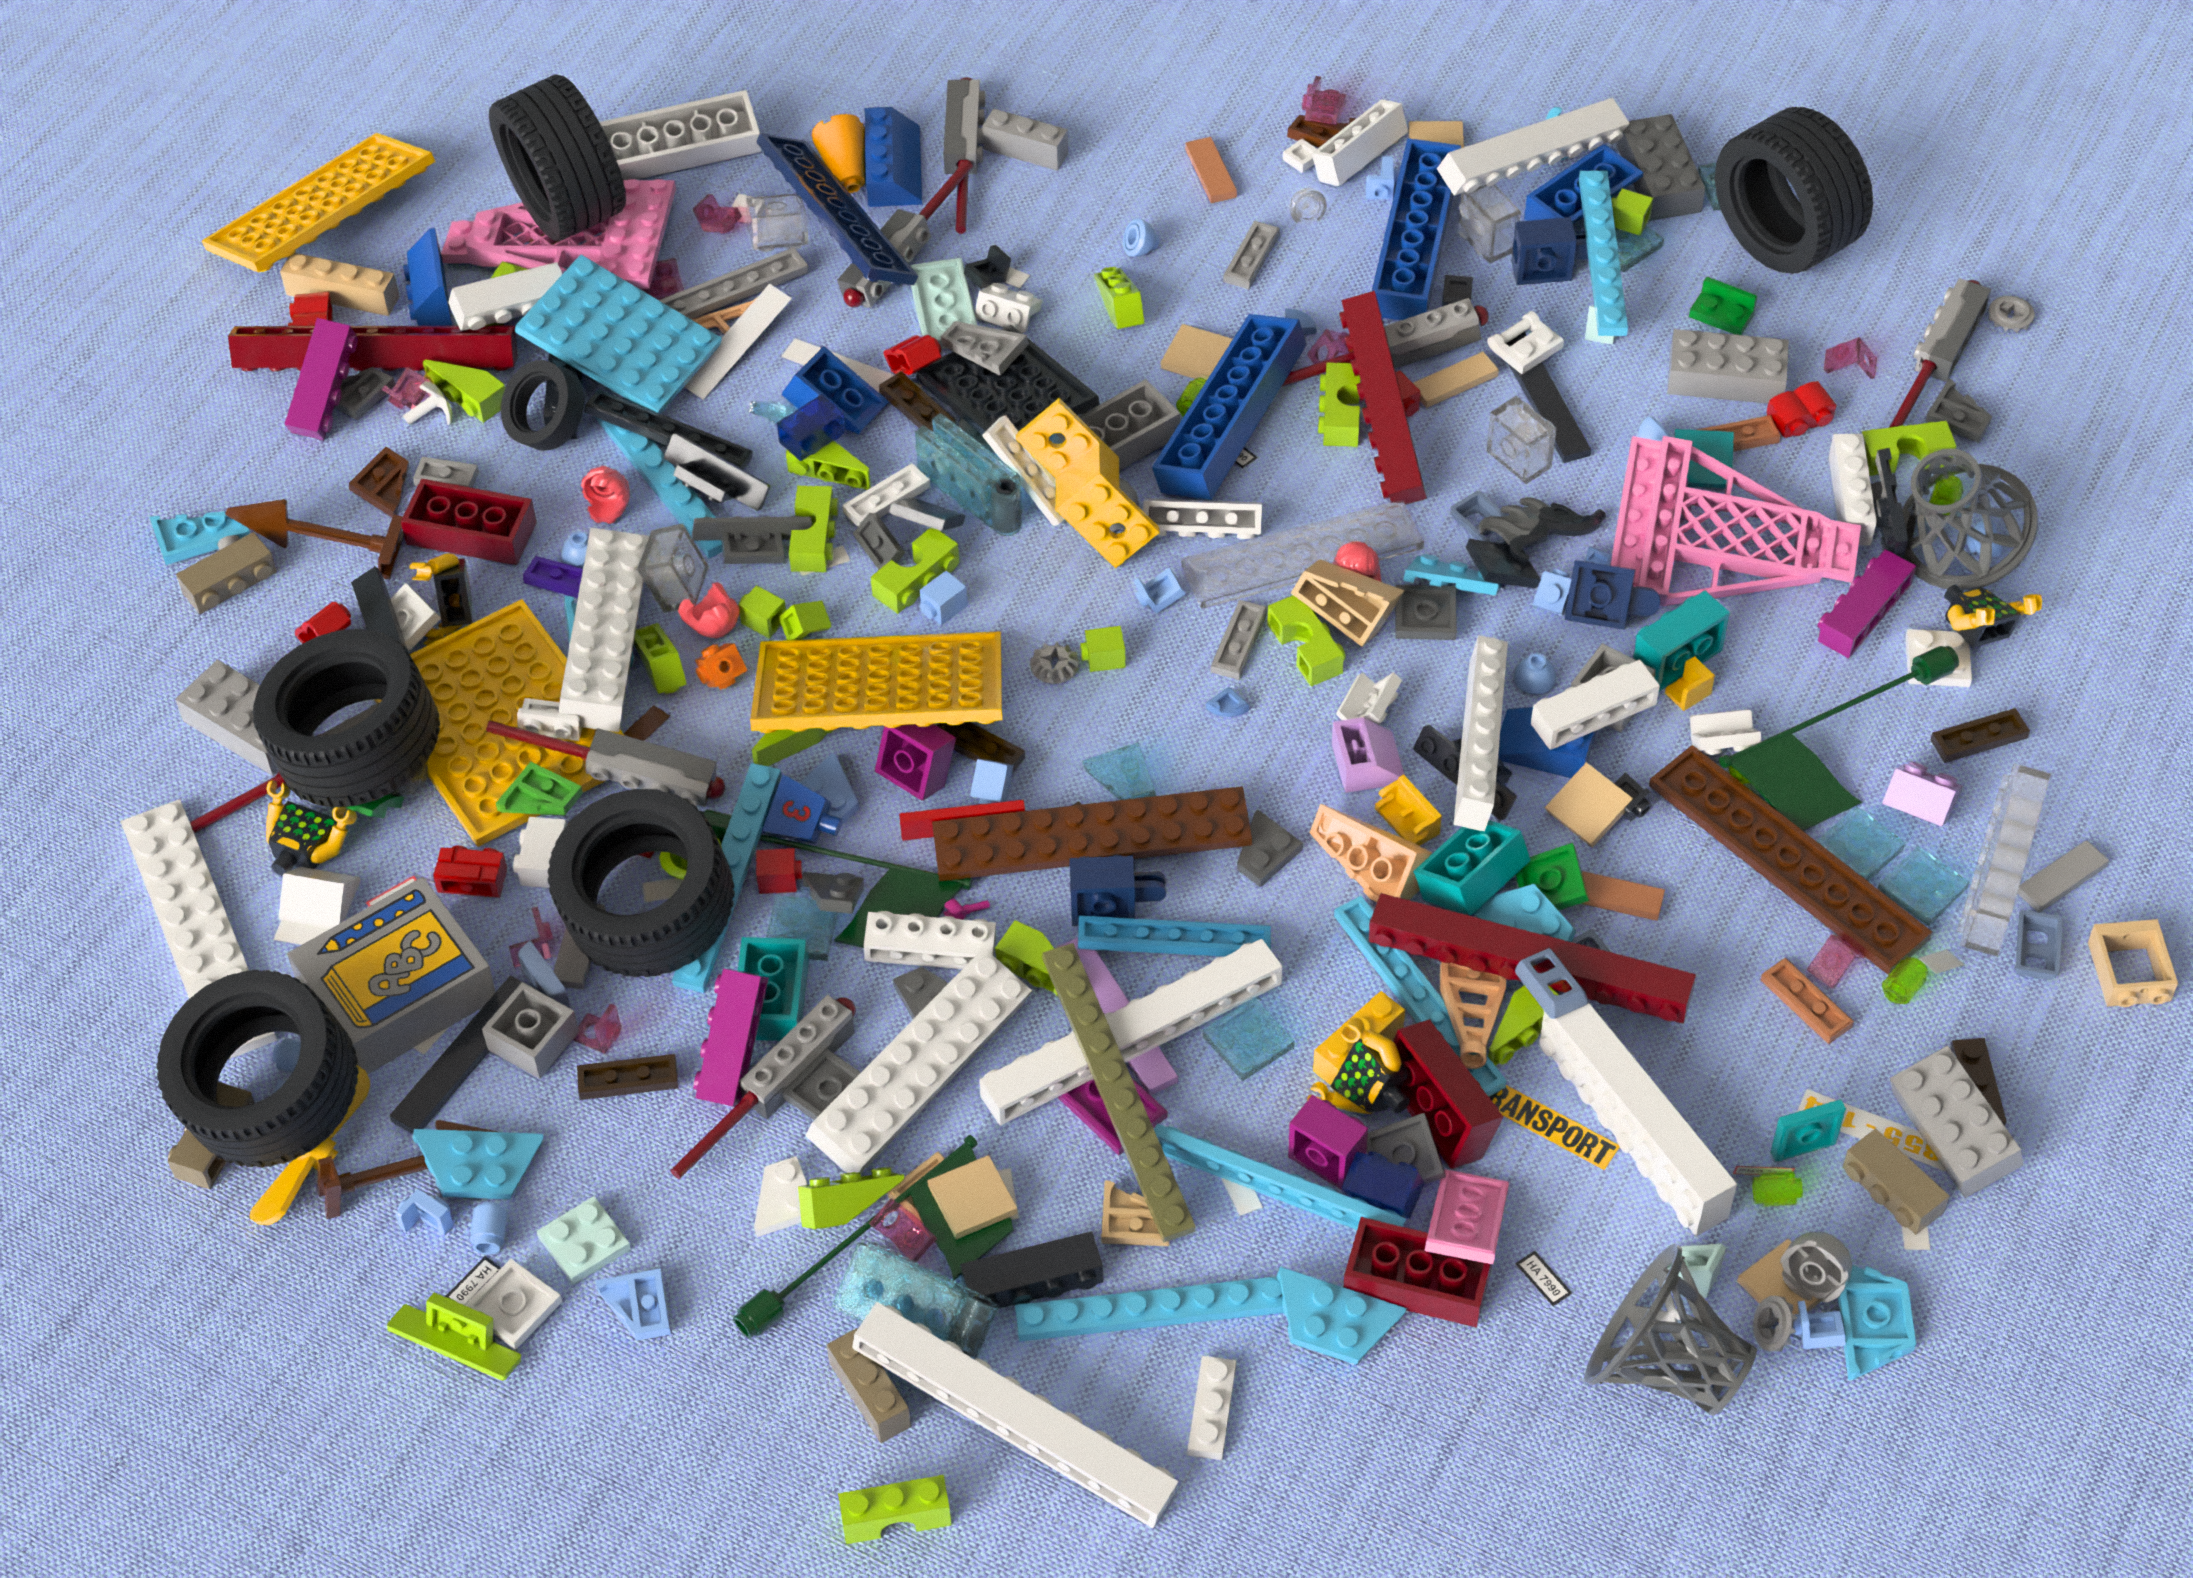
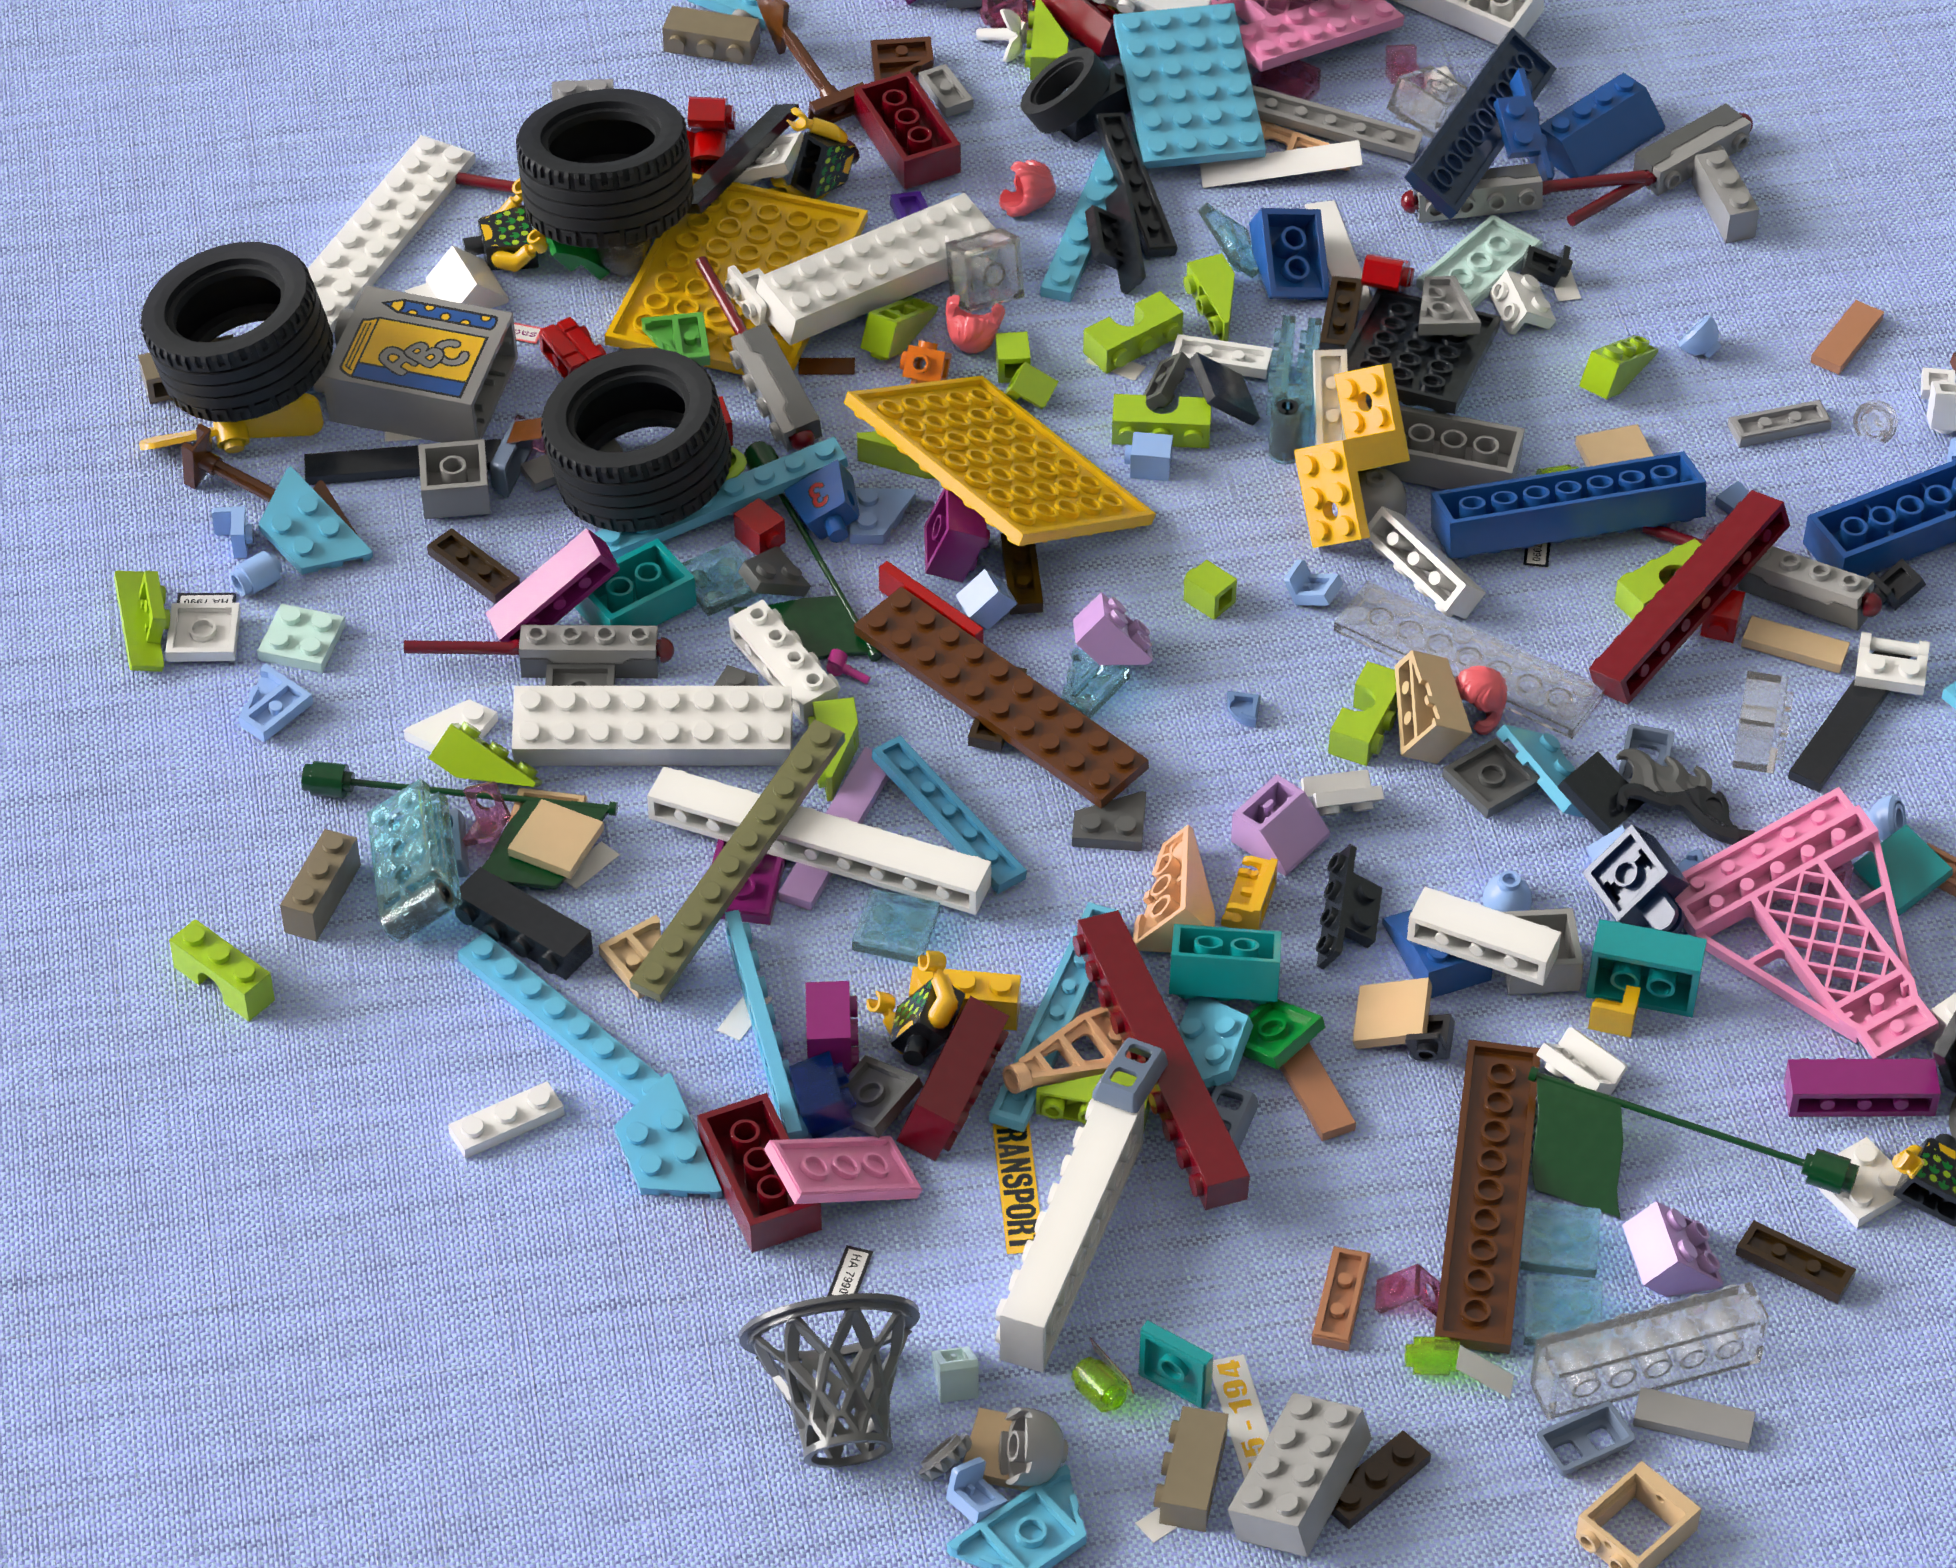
camera: 50 degrees right, 5 degrees down
(554, 946) = (525, 430): none -> reddish brown sticker
(606, 1029) = (502, 522): clear pink bracket -> none
(749, 538) = (1075, 299): dark grey bracket -> none
(811, 427) = (1222, 256): clear blue brick -> none
(843, 149) = (1566, 83): light orange cone -> none
(860, 188) = (1521, 126): none -> blue bracket
(1015, 1414) = (366, 986): white brick -> none
(1063, 670) = (1161, 578): light grey gear -> none
(1101, 730) = (1111, 635): none -> lavender slope
(1111, 887) = (946, 735): dark blue brick -> none
(1239, 639) = (1320, 673): light grey tile -> none
(1481, 733) = (1373, 880): white brick -> none

